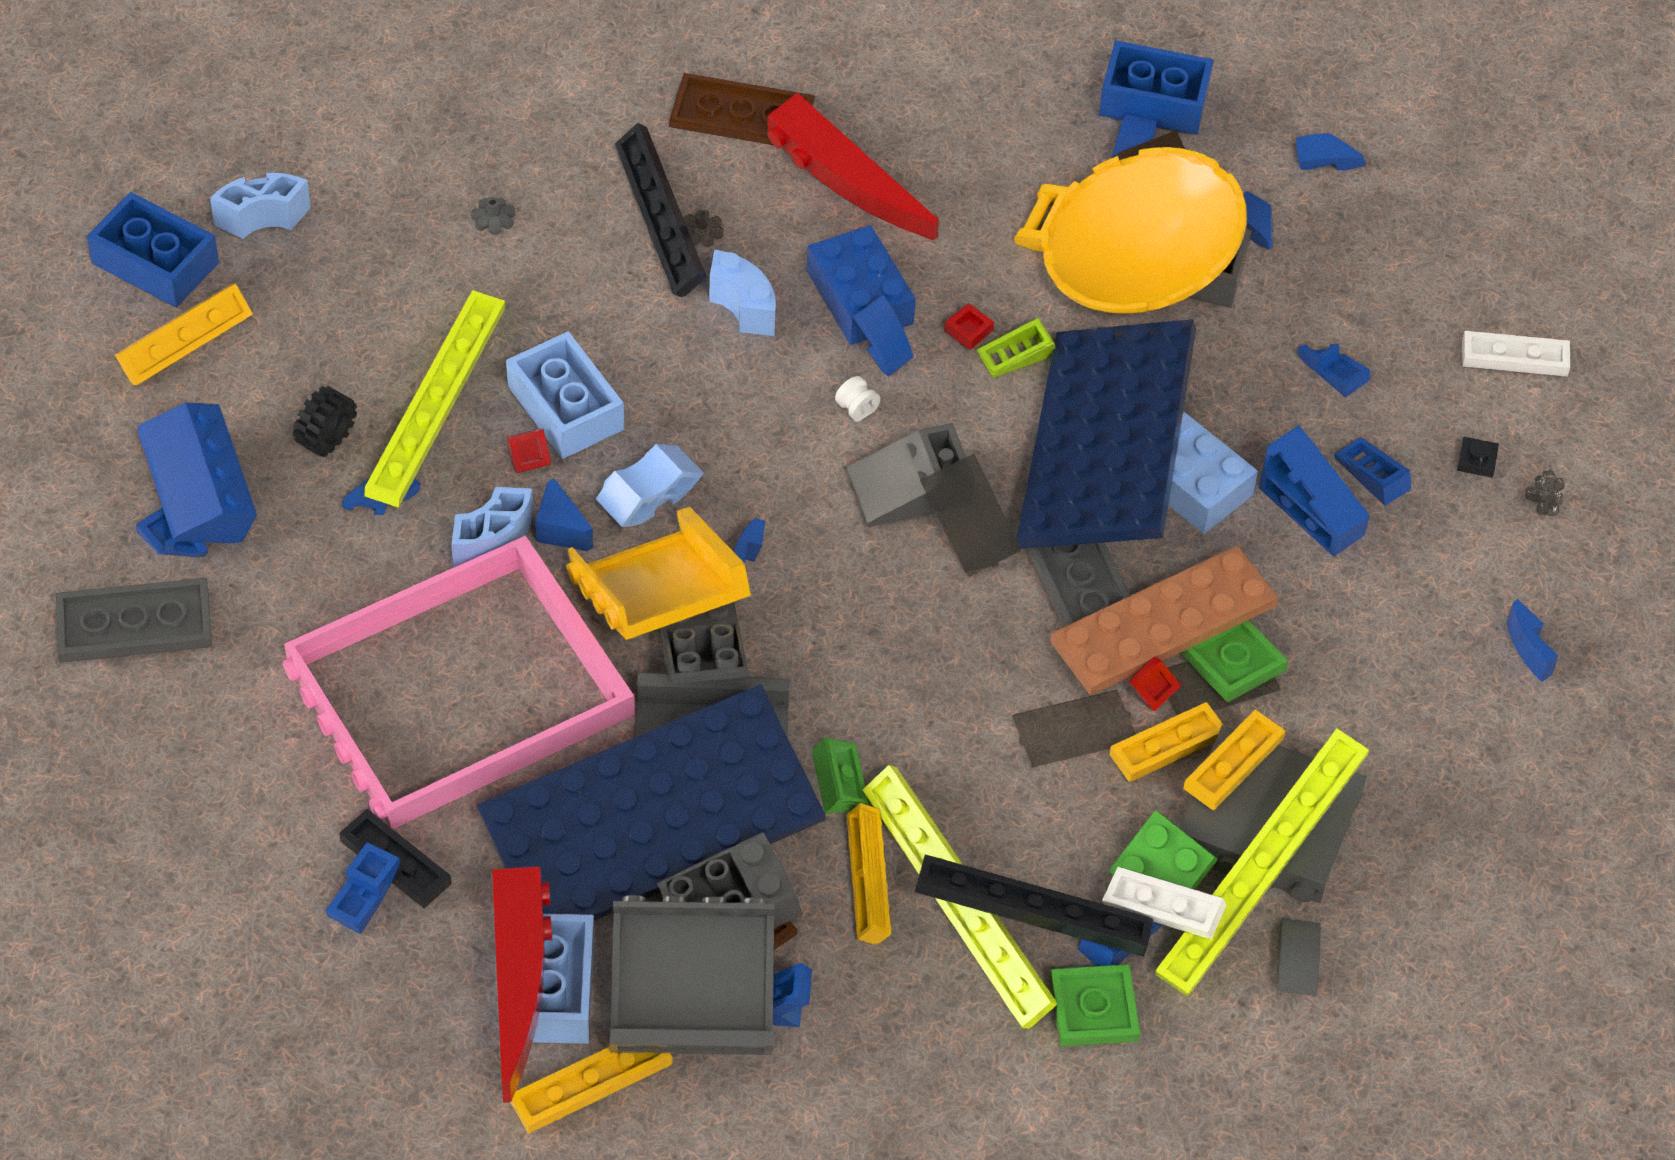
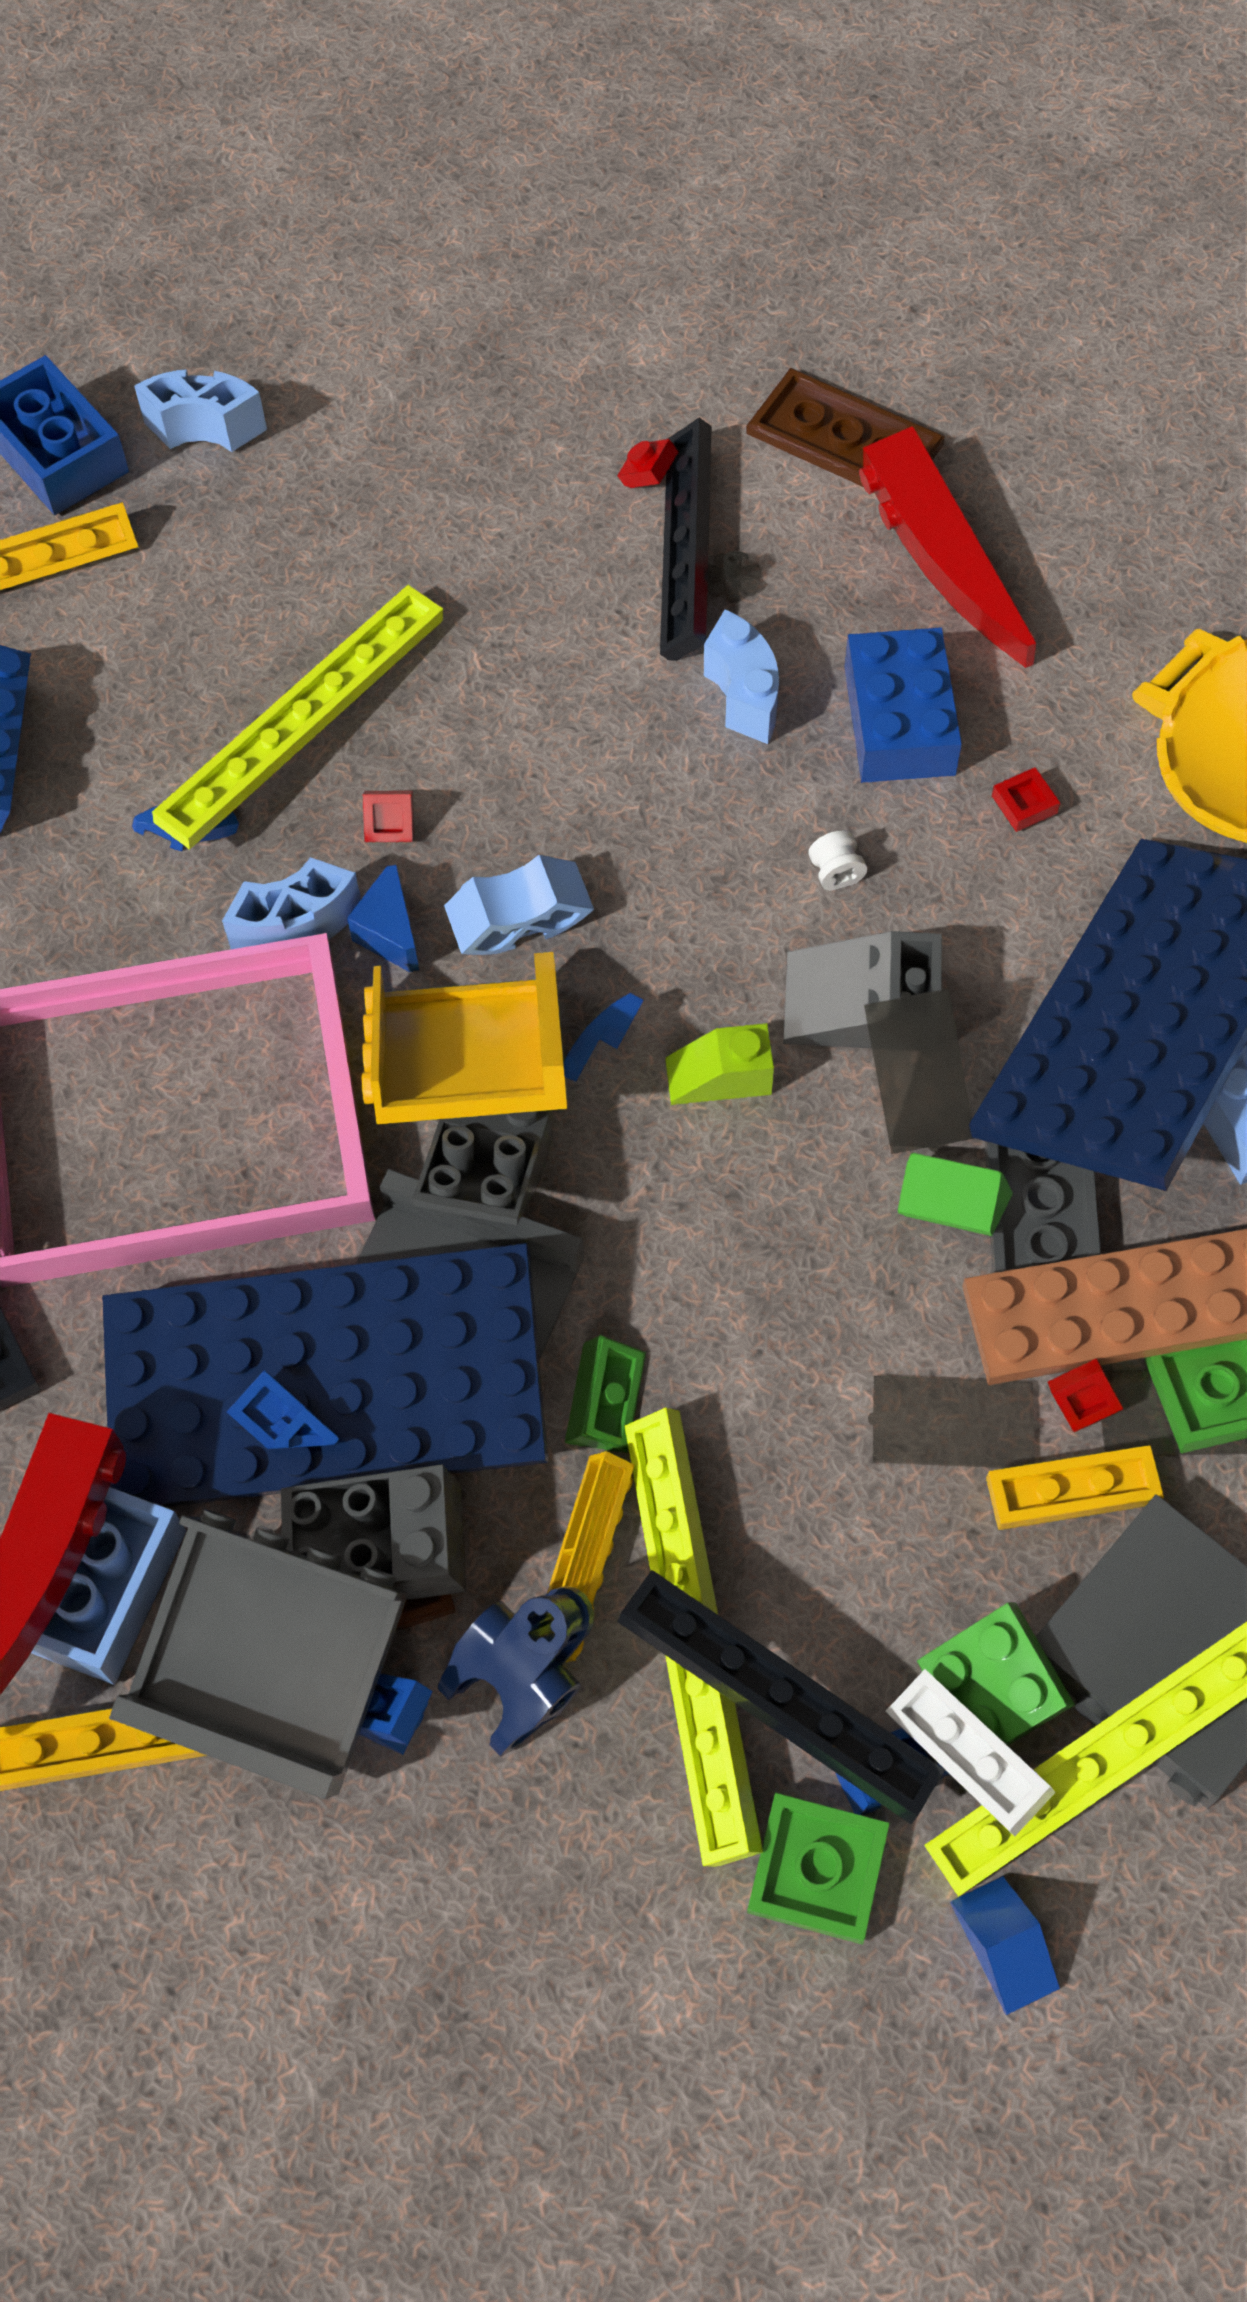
camera: 25 degrees right, 10 degrees up
(324, 421) = (150, 709): black tyre -> none
(493, 214) = (481, 494): dark grey plant -> none
(565, 395) = (461, 754): light blue brick -> none
(609, 164) = (647, 463): none -> red plate
(637, 840) = (279, 1417): none -> blue slope
(835, 550) = (722, 1066): none -> lime slope
(863, 936) = (523, 1660): none -> dark blue piece
(887, 337) = (904, 783): blue slope -> none
(1021, 586) = (953, 1194): none -> bright green slope
(1032, 354) = (1094, 829): lime slope -> none
(1228, 1011) = (1007, 1944): none -> blue slope
(1234, 760) = (1151, 1559): yellow plate -> none
(1298, 957) = (1143, 1891): dark grey slope -> none

